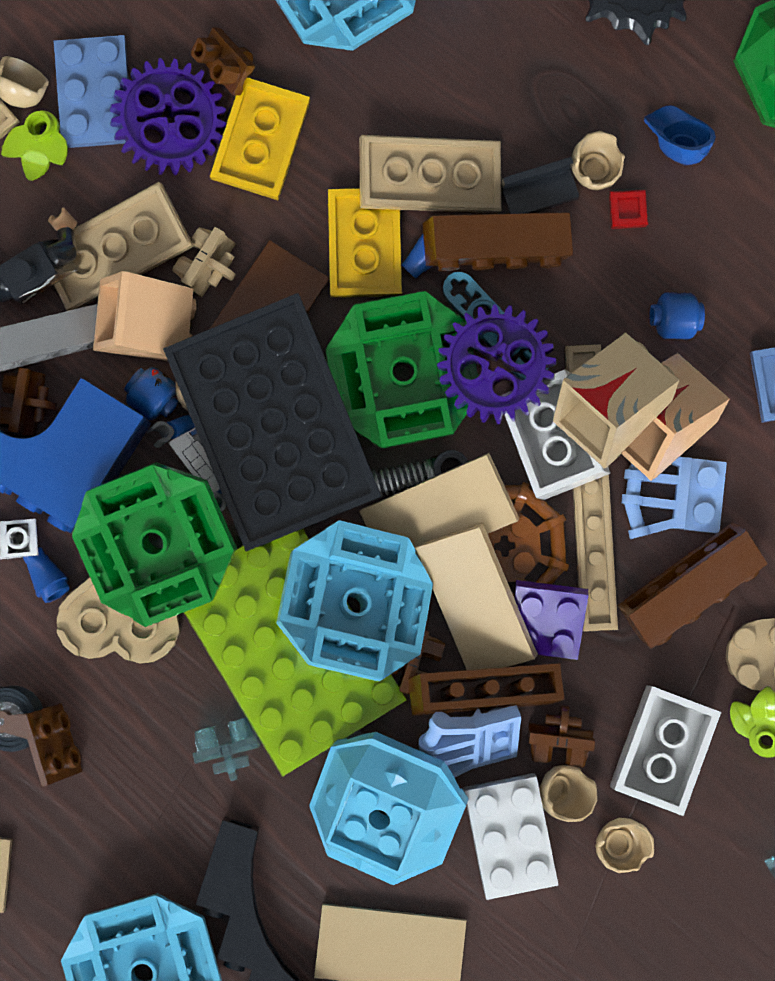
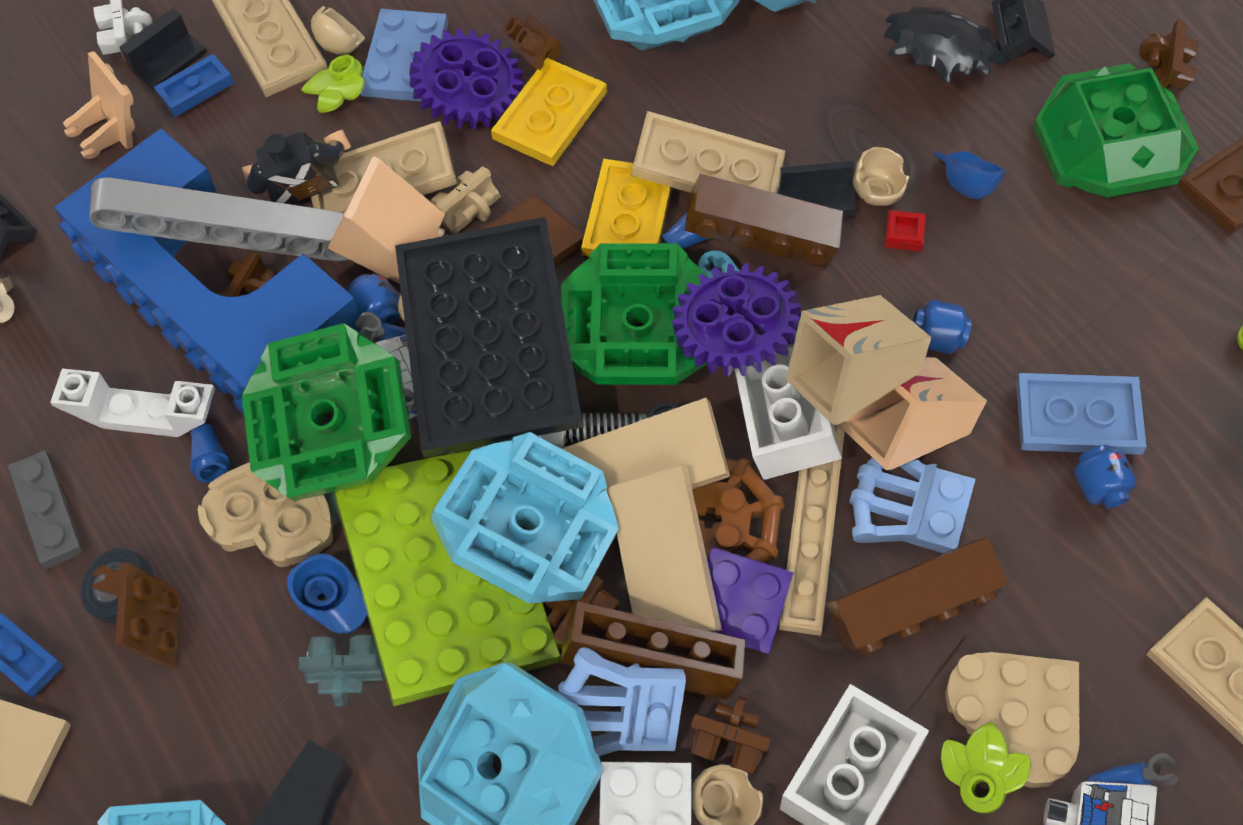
camera: 20 degrees right, 25 degrees down
(209, 694) = (327, 577): none -> blue cap

